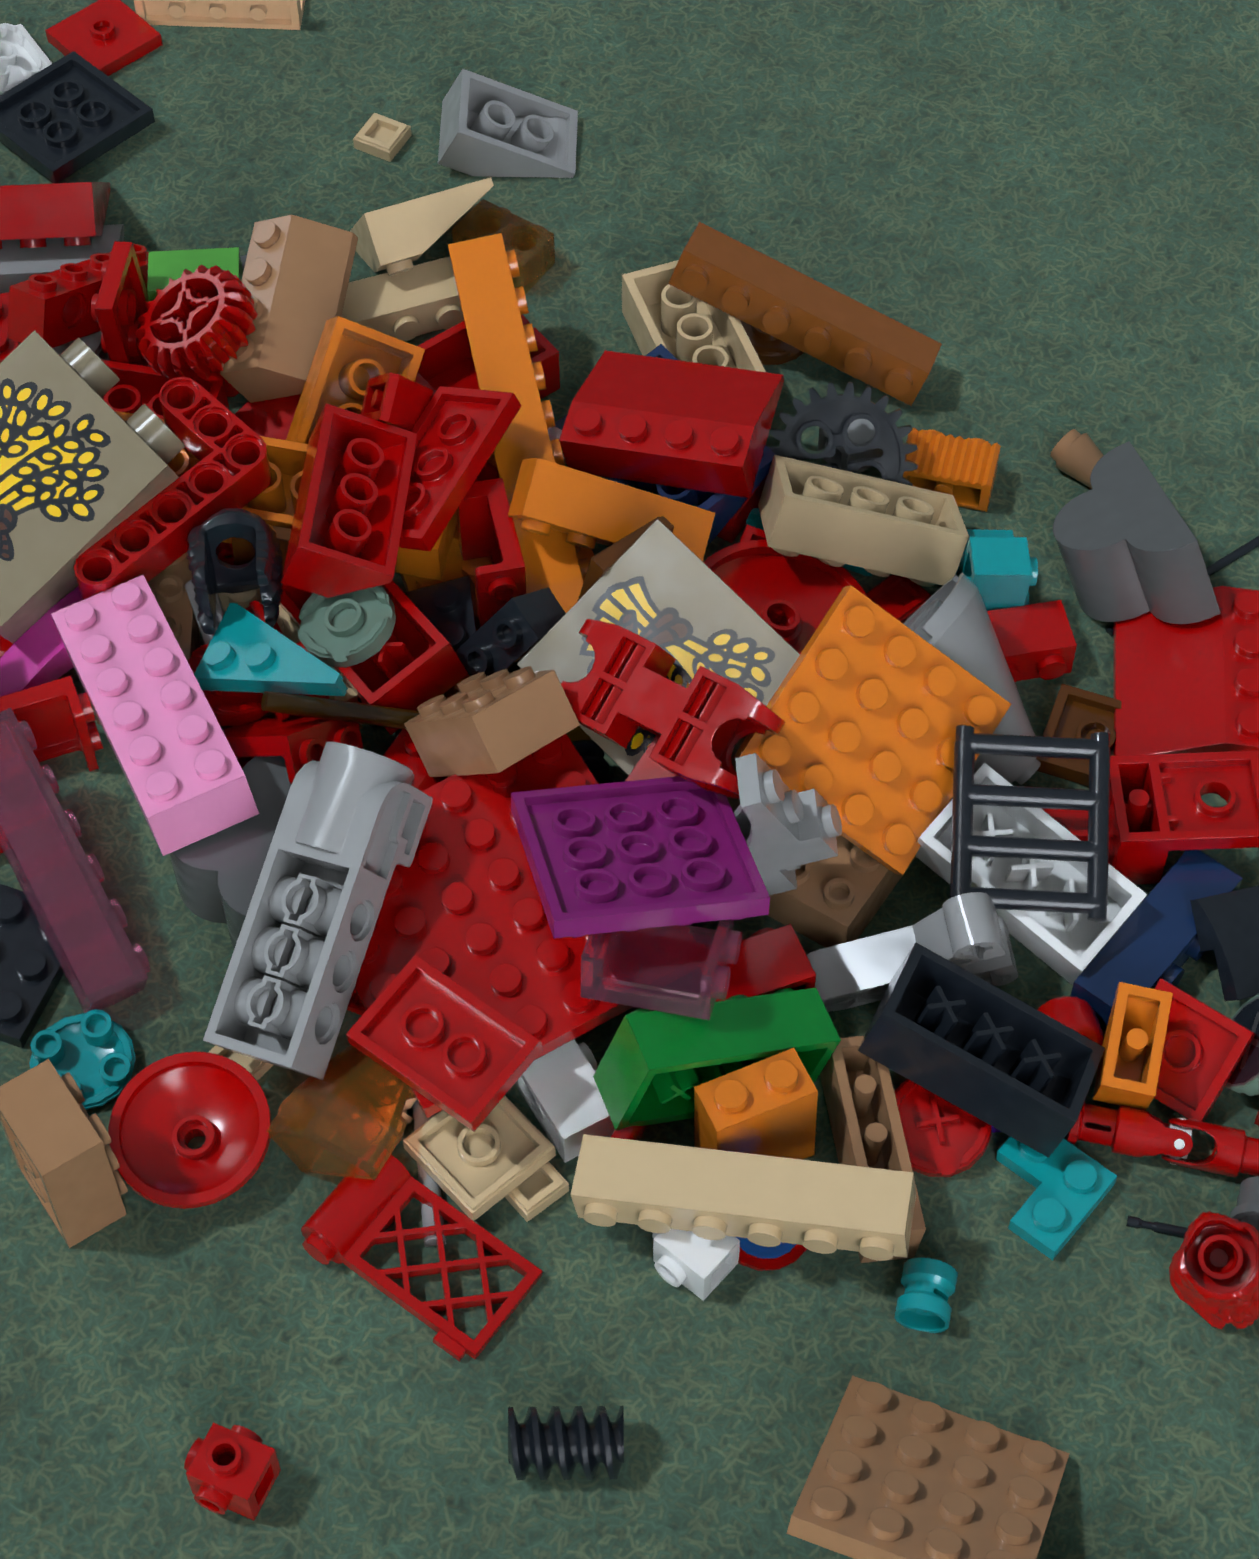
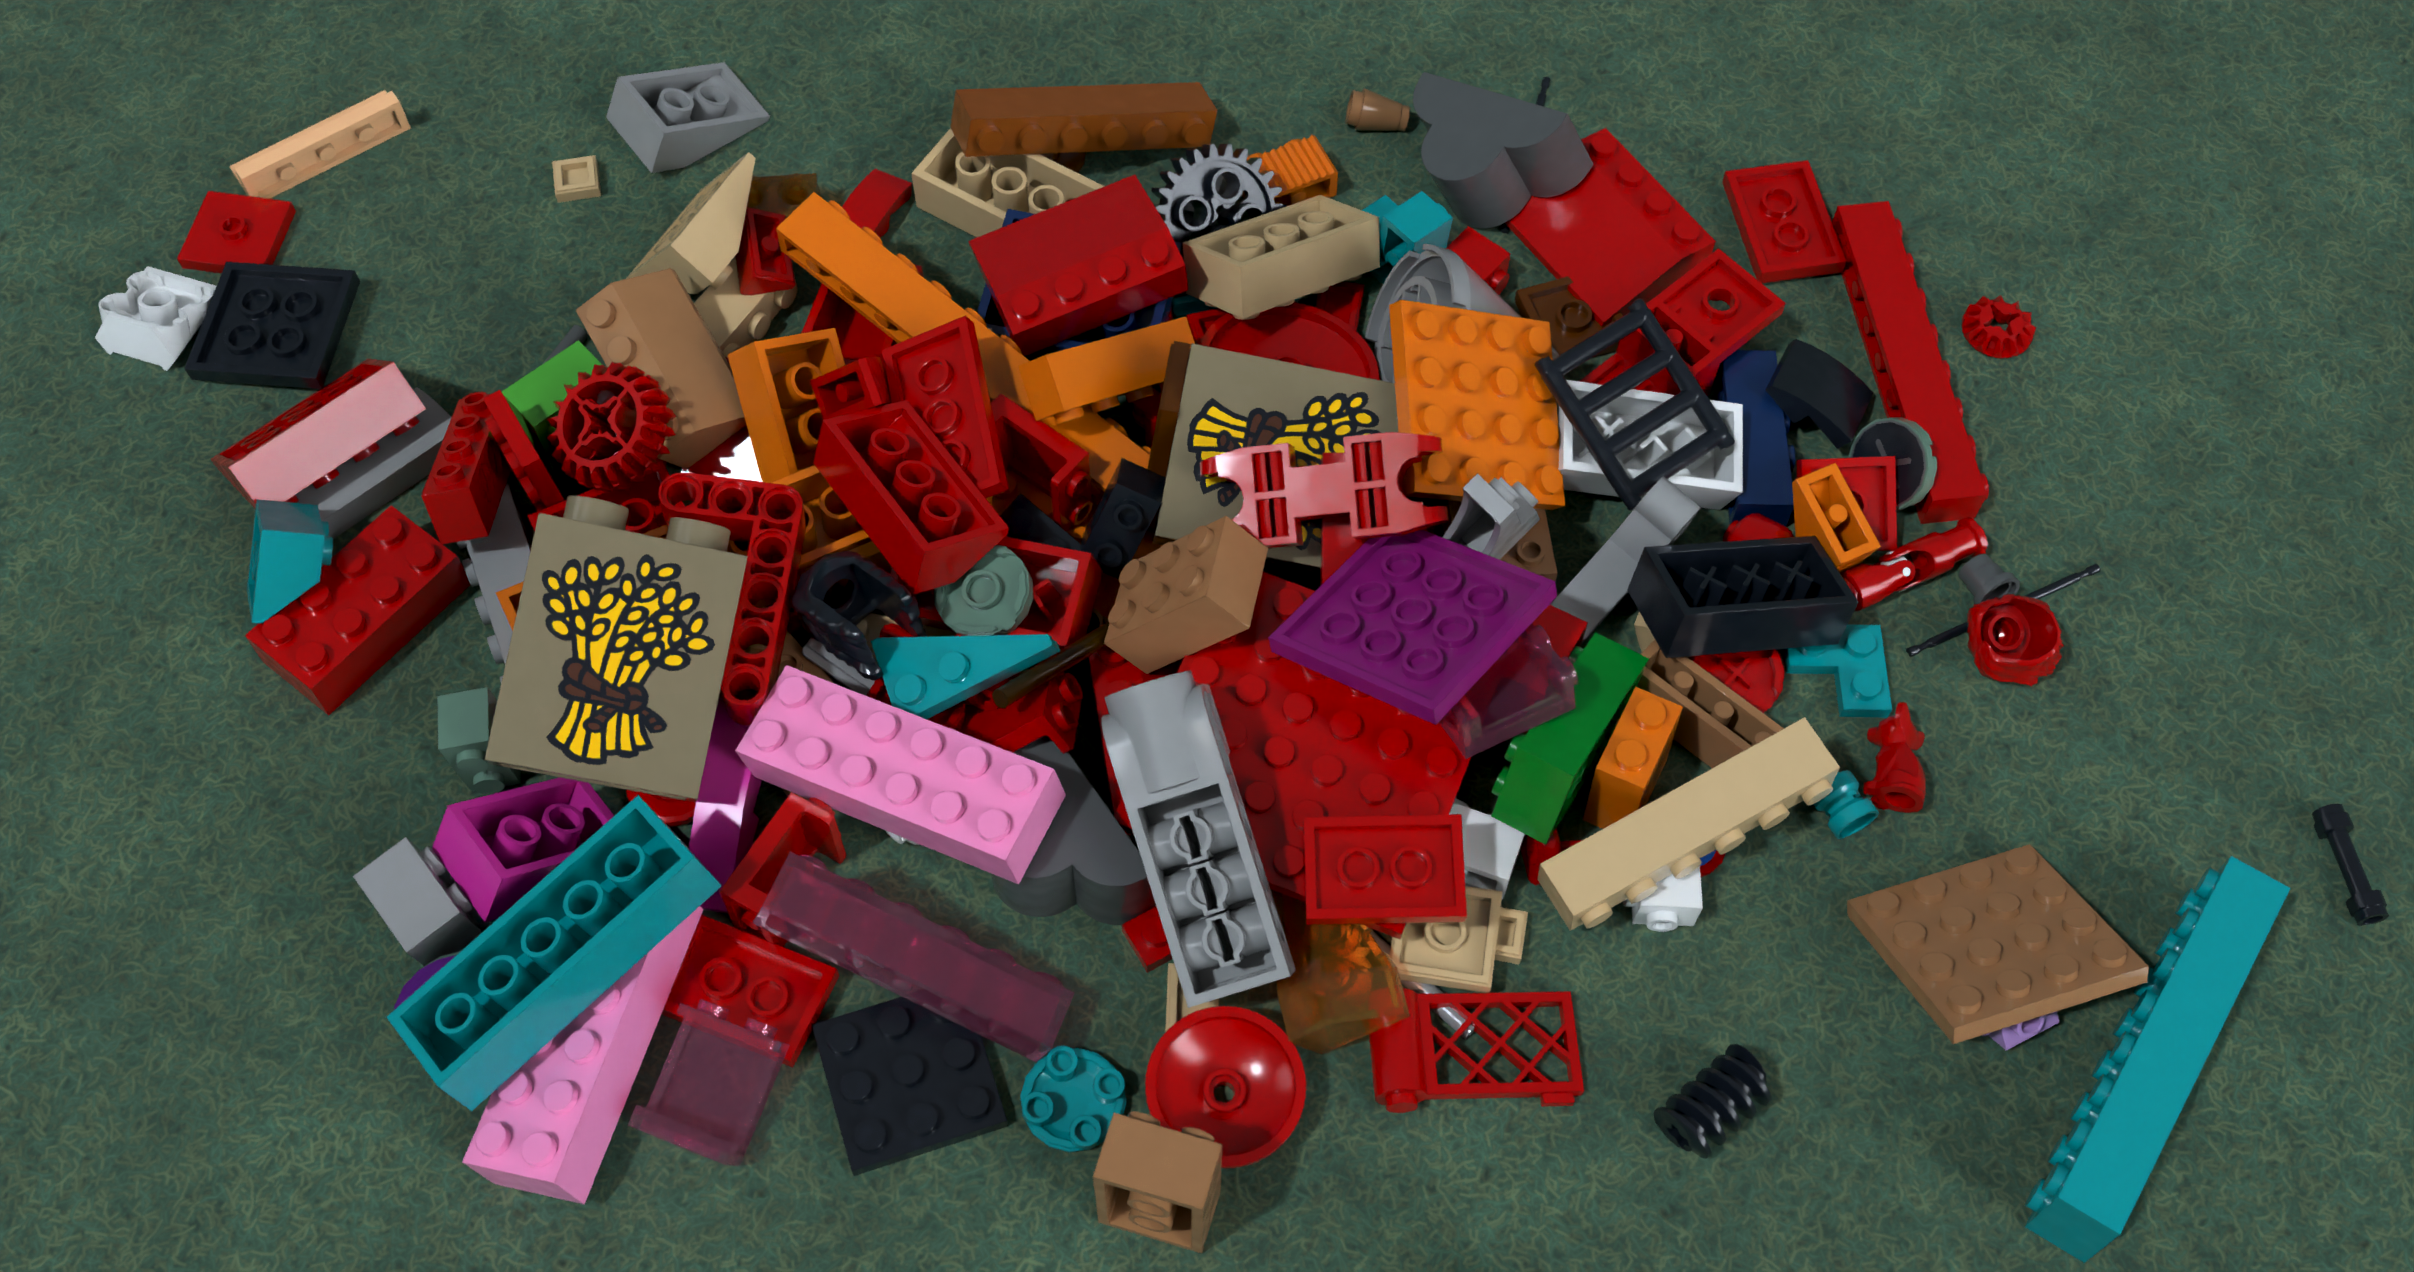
camera: 40 degrees left, 5 degrees up
(437, 281) = (760, 260): none -> red slope
(573, 291) = (877, 200): none -> red slope
(1005, 1301) = (1899, 774): none -> red animal

